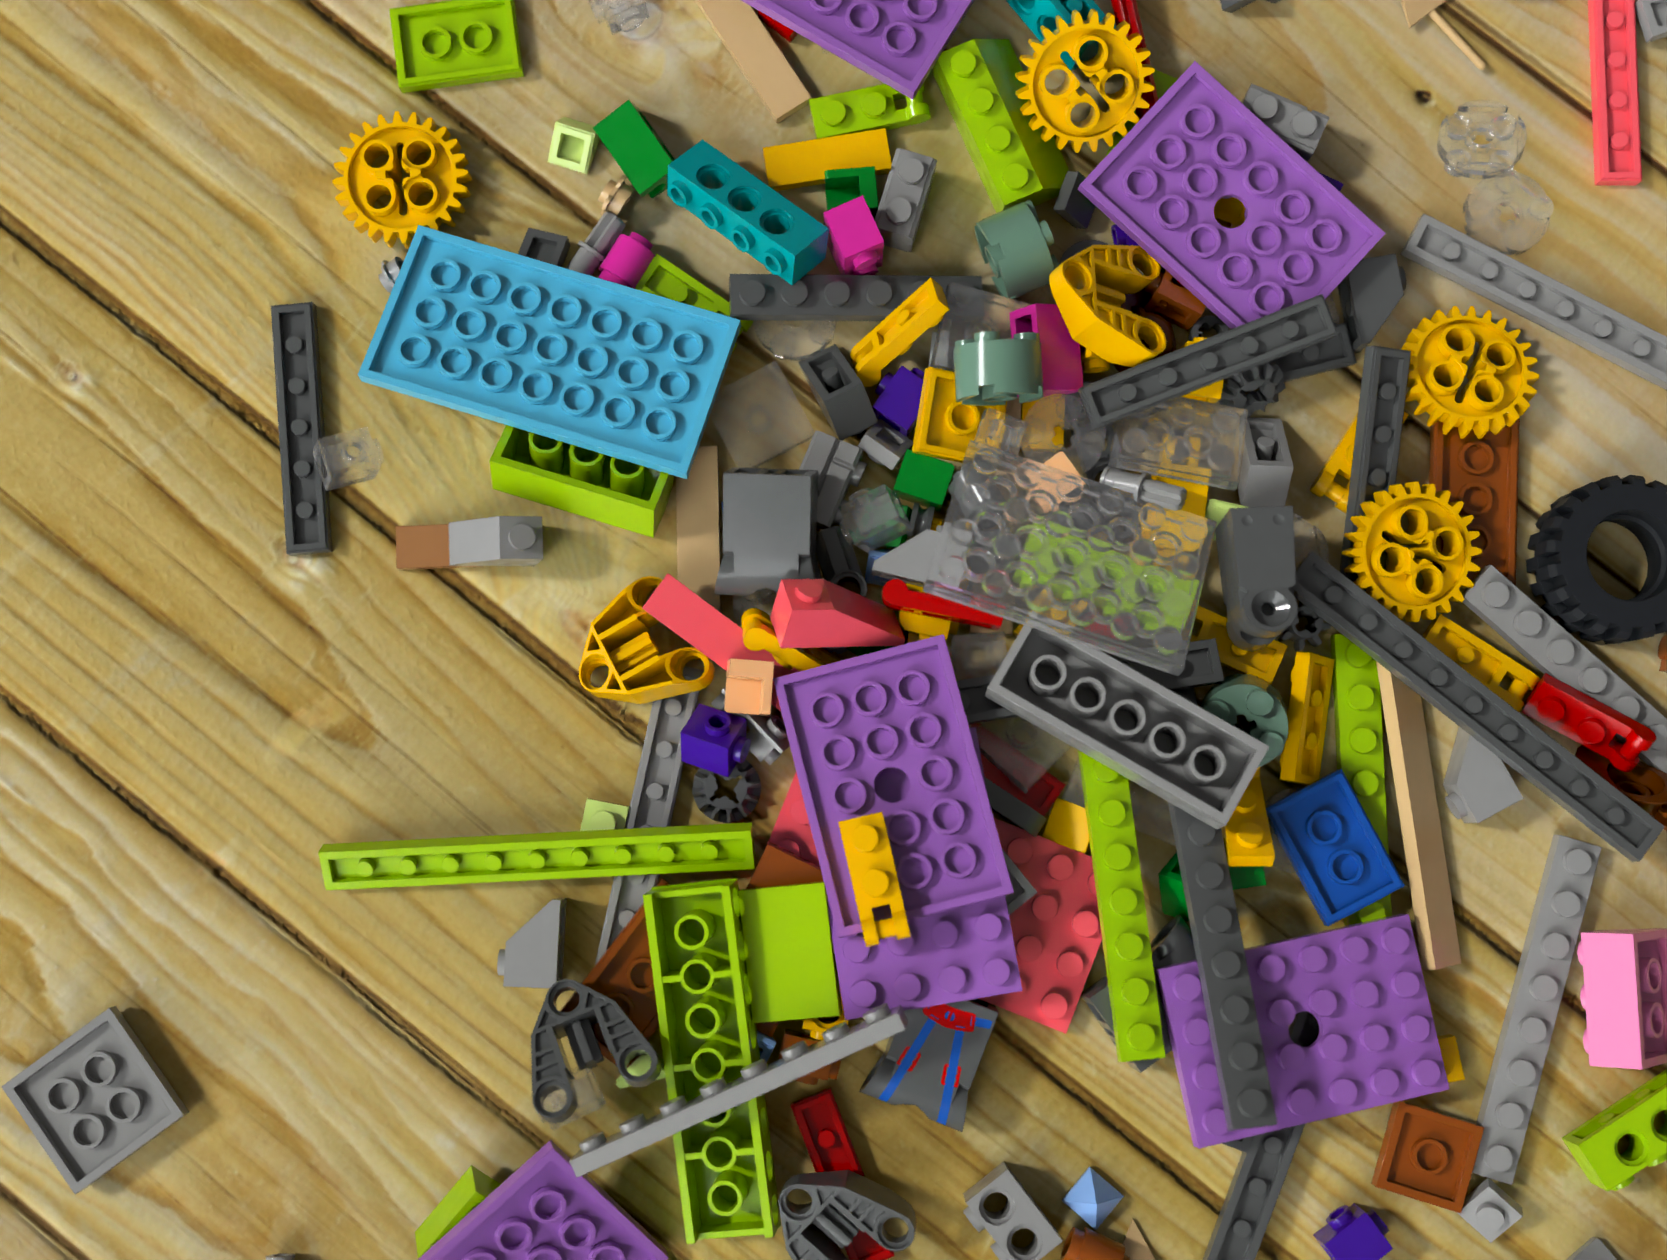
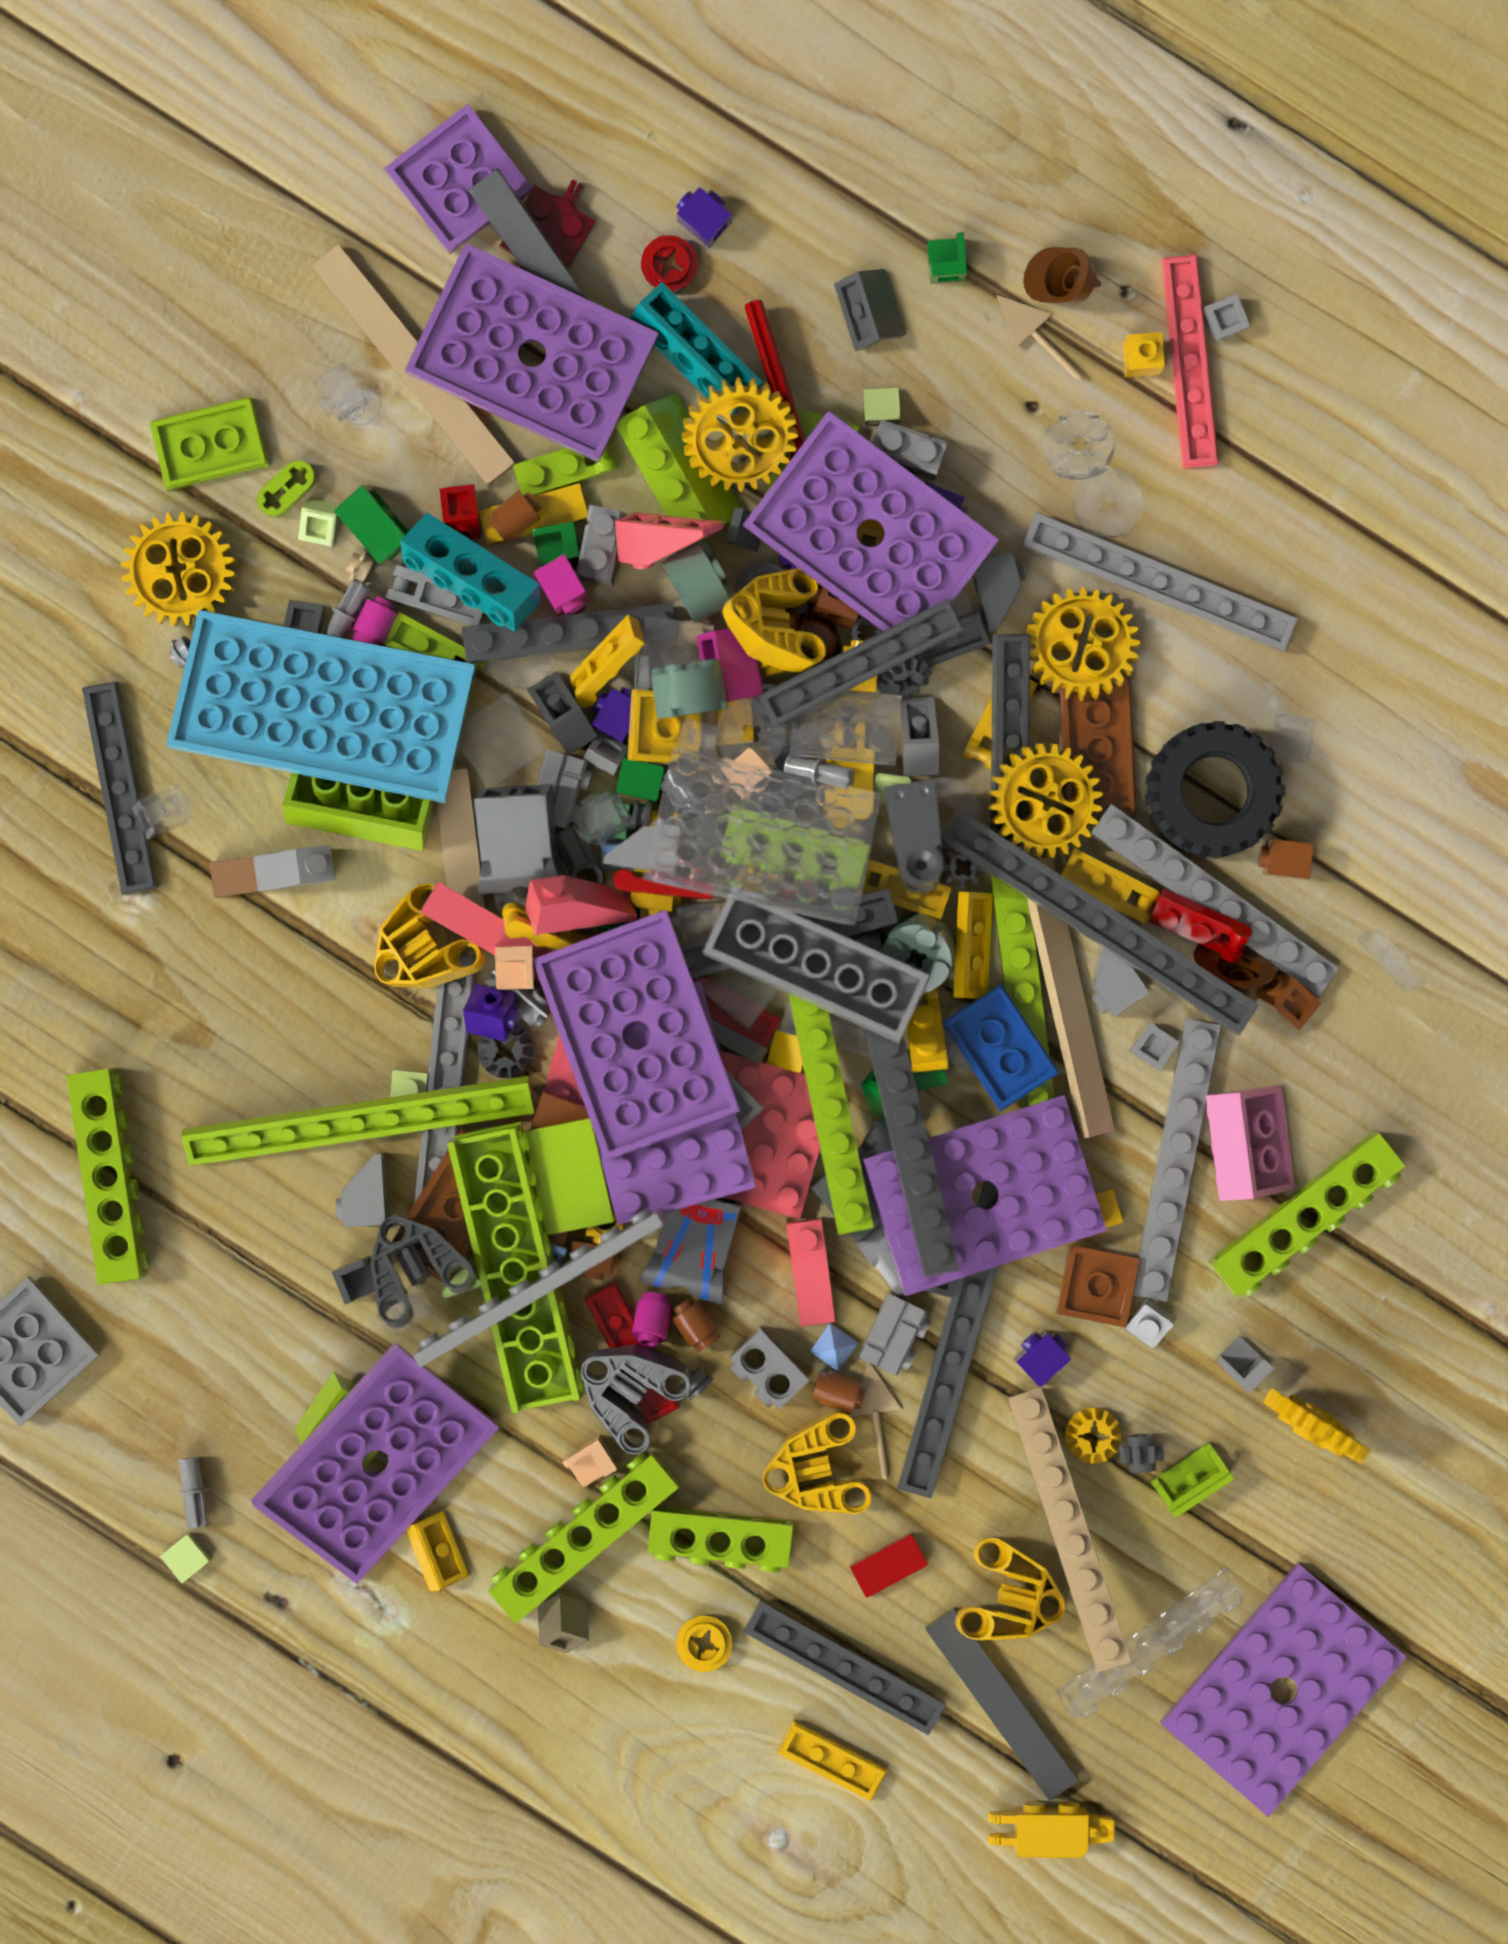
camera: 10 degrees left, 5 degrees up
(208, 911) = (109, 1265): none -> lime brick
(509, 1053) = (354, 1279): none -> dark grey panel
(542, 104) = (280, 483): none -> lime beam
(697, 241) = (431, 598): none -> light grey plate
(743, 142) = (461, 510): none -> red bracket
(806, 153) = (515, 515): none -> dark orange brick
(872, 1141) = (652, 1319): none -> dark pink brick
(873, 877) = (627, 1109): yellow plate -> none
(925, 1152) = (695, 1324): none -> dark orange brick
(925, 1225) = (699, 1382): none -> dark grey bush
(975, 193) = (651, 537): none -> coral slope
(1074, 1099) = (810, 1271): none -> coral slope
(1163, 1088) = (878, 1253): none -> light grey piece
(1171, 1191) = (894, 1333): none -> light grey brick
(1245, 71) = (881, 405): none -> yellowish green slope
(1518, 865) = (1154, 1046): none -> light grey plate
(1564, 44) = (1143, 354): none -> yellow brick

